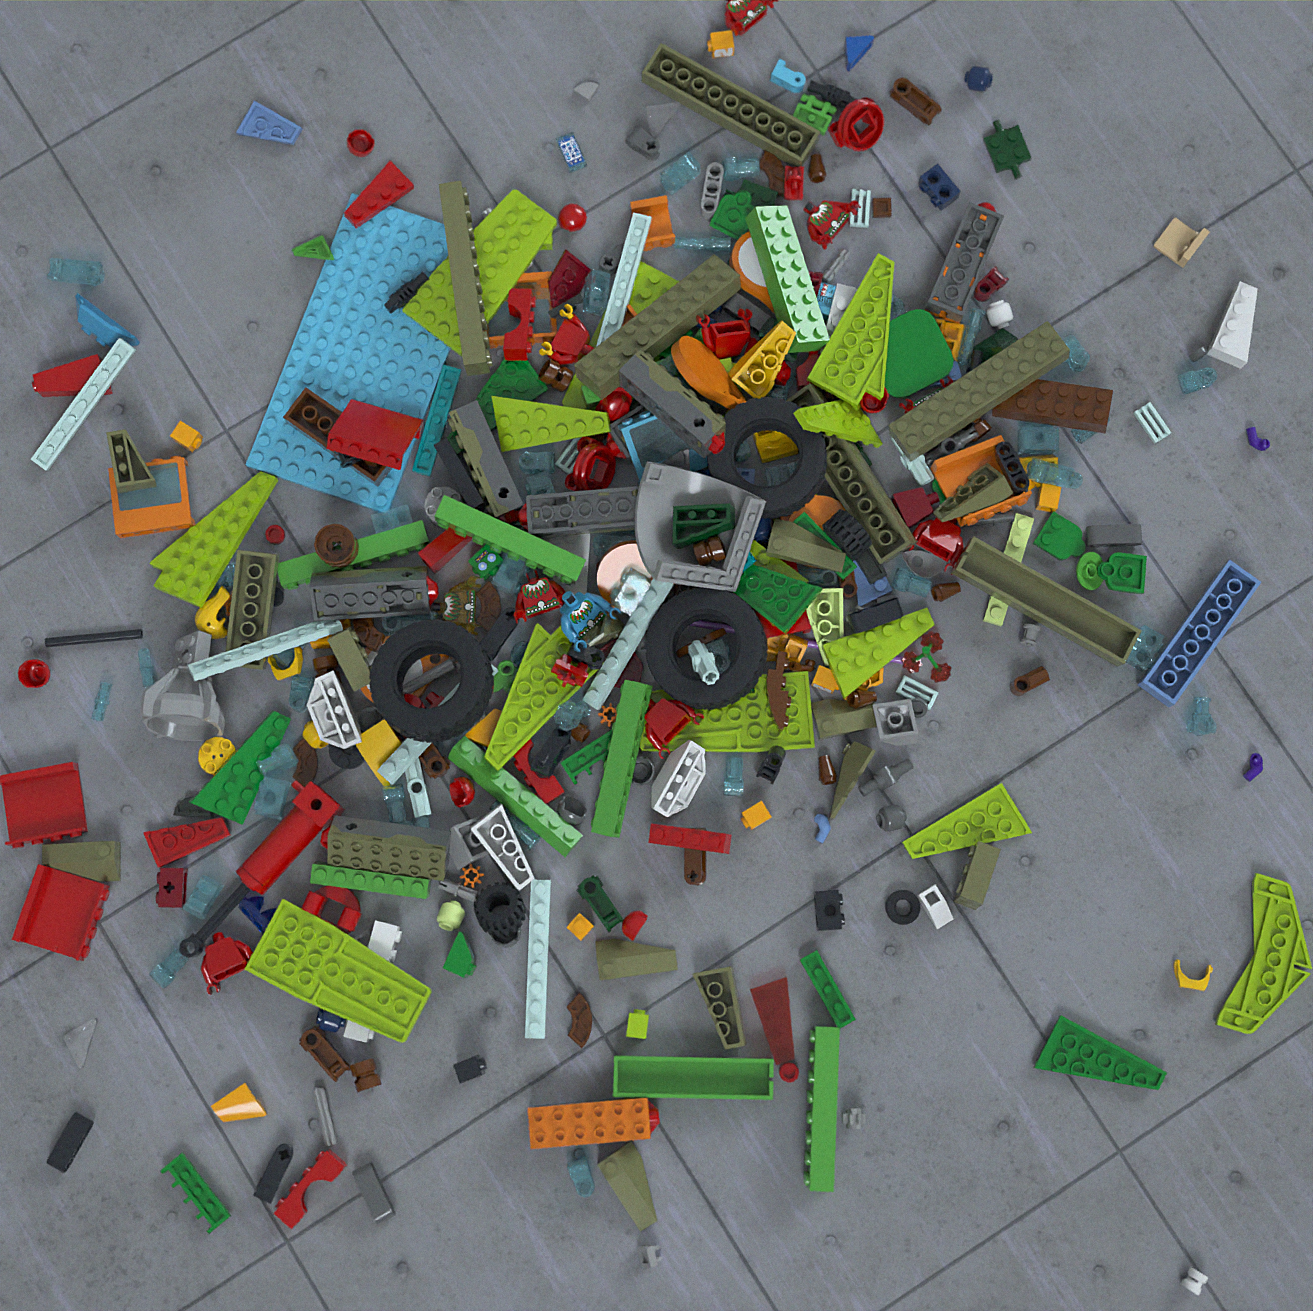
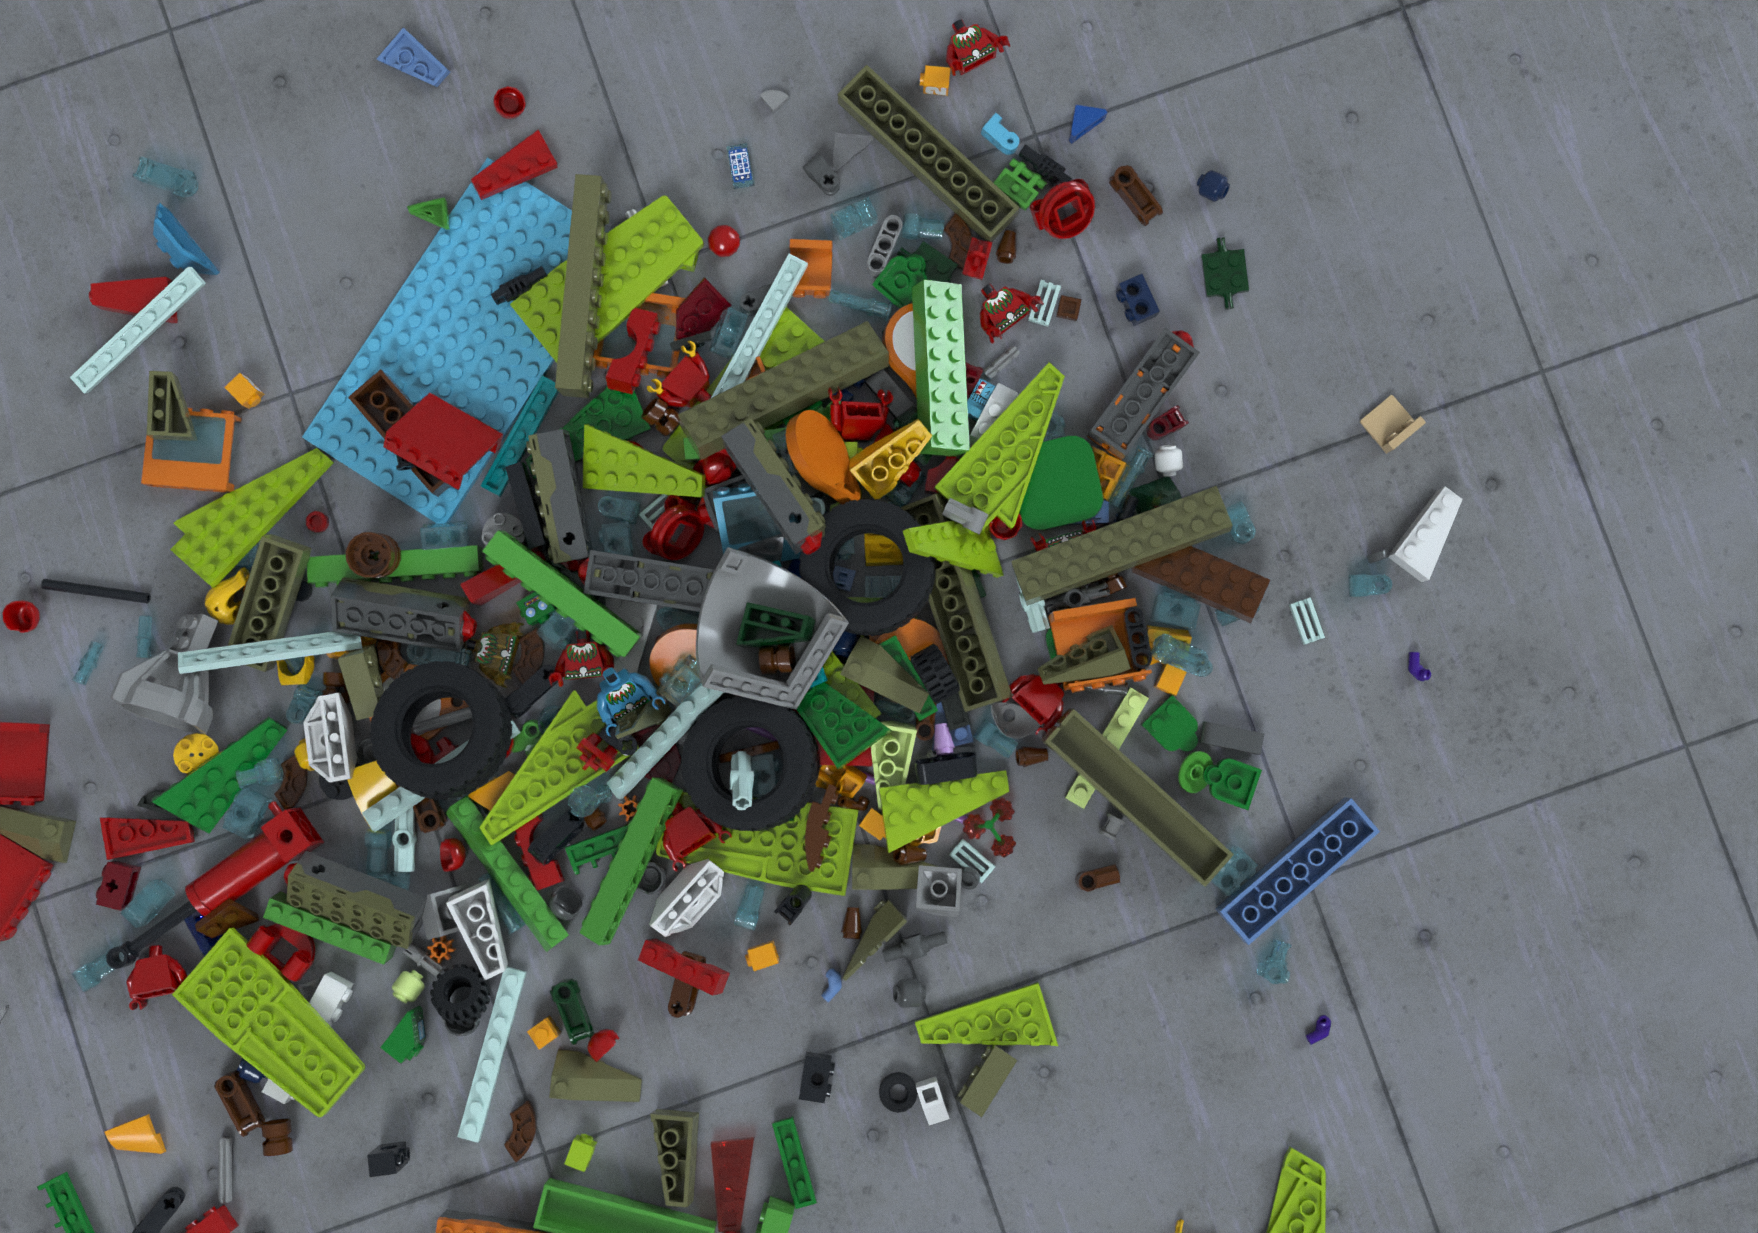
camera: 15 degrees right, 5 degrees up
(274, 891) = (226, 916): none -> reddish brown wing
(844, 395) = (969, 517): none -> light grey piece
(866, 593) = (942, 740): none -> lavender cone
(914, 505) = (1020, 653): dark red torso -> none

